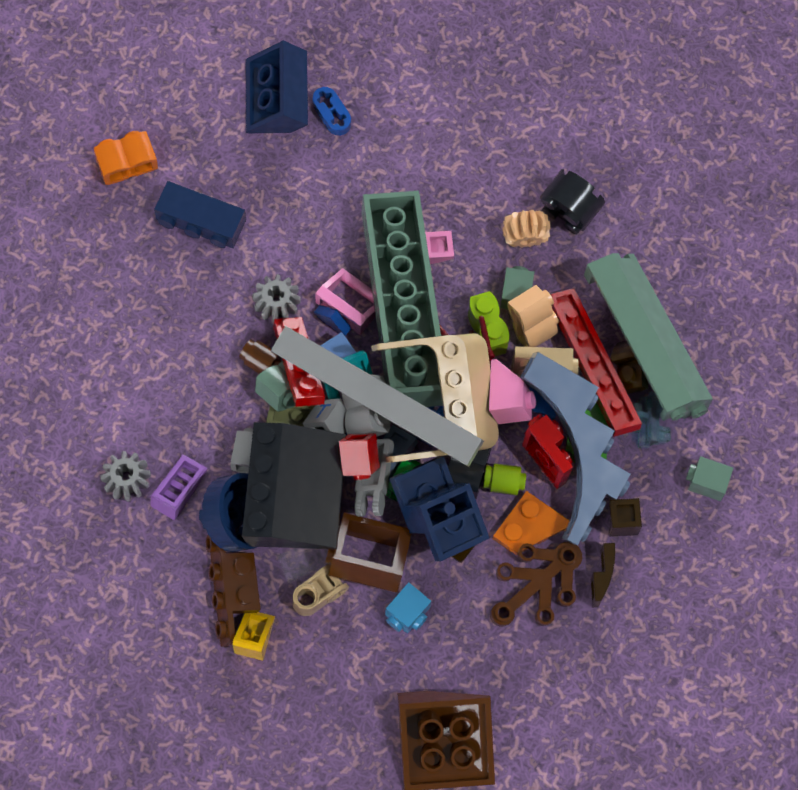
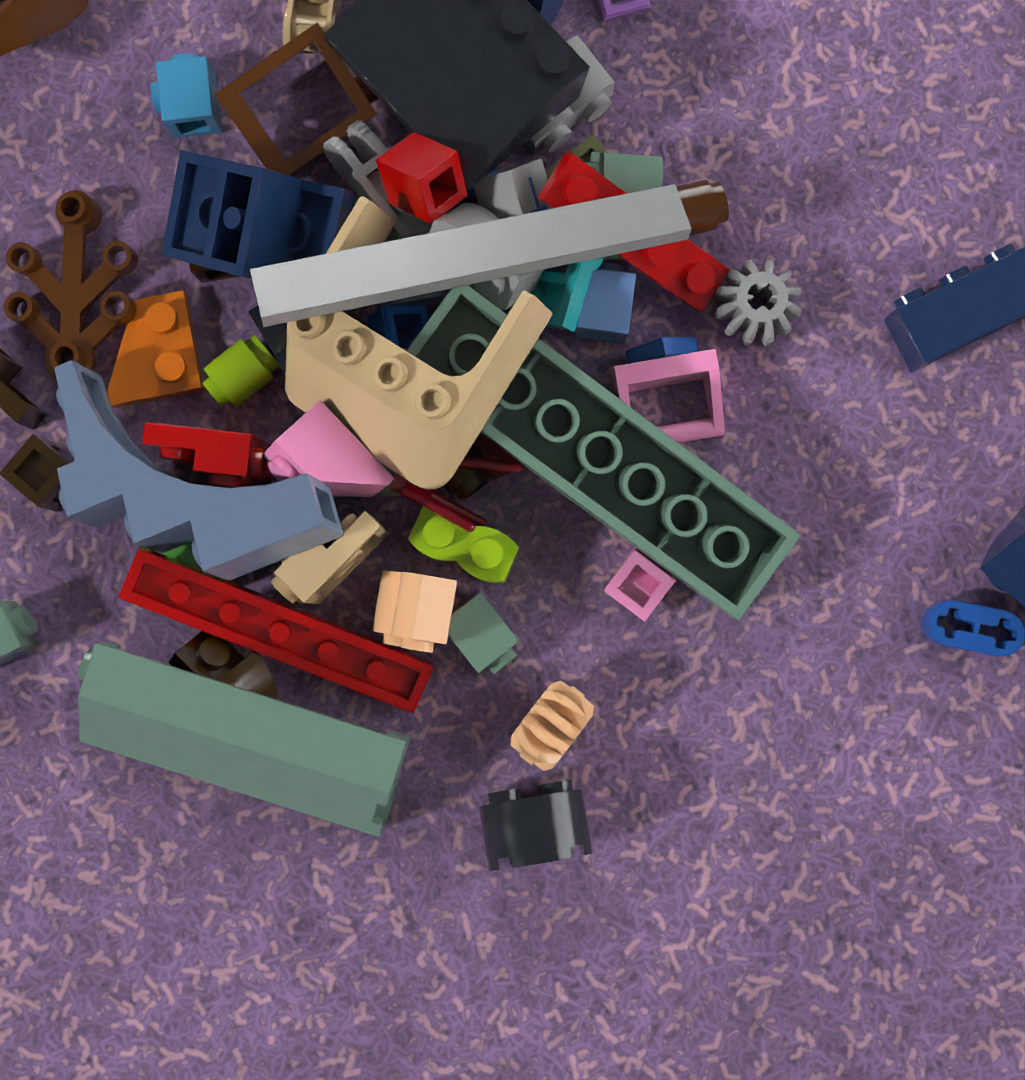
camera: 140 degrees right, 15 degrees up
(649, 412) = (137, 629): clear light blue hips -> none

